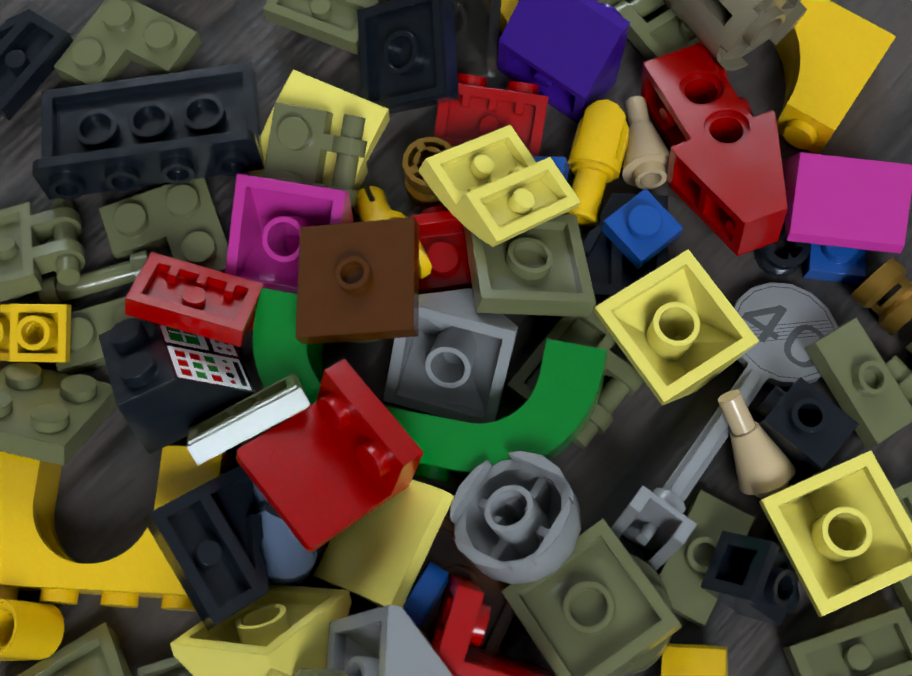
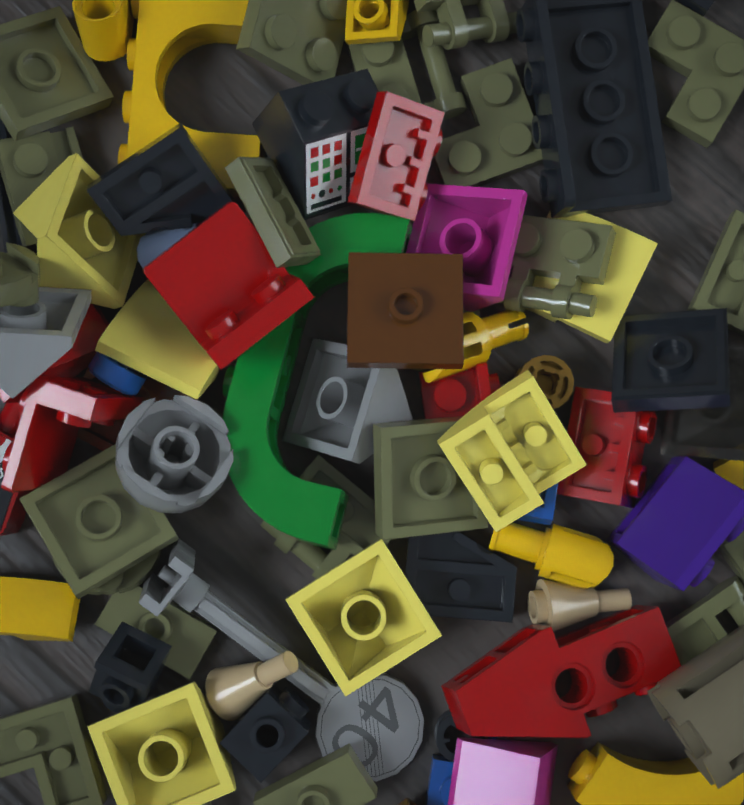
camera: 90 degrees right, 15 degrees up
(641, 228) = (472, 593): blue plate -> none

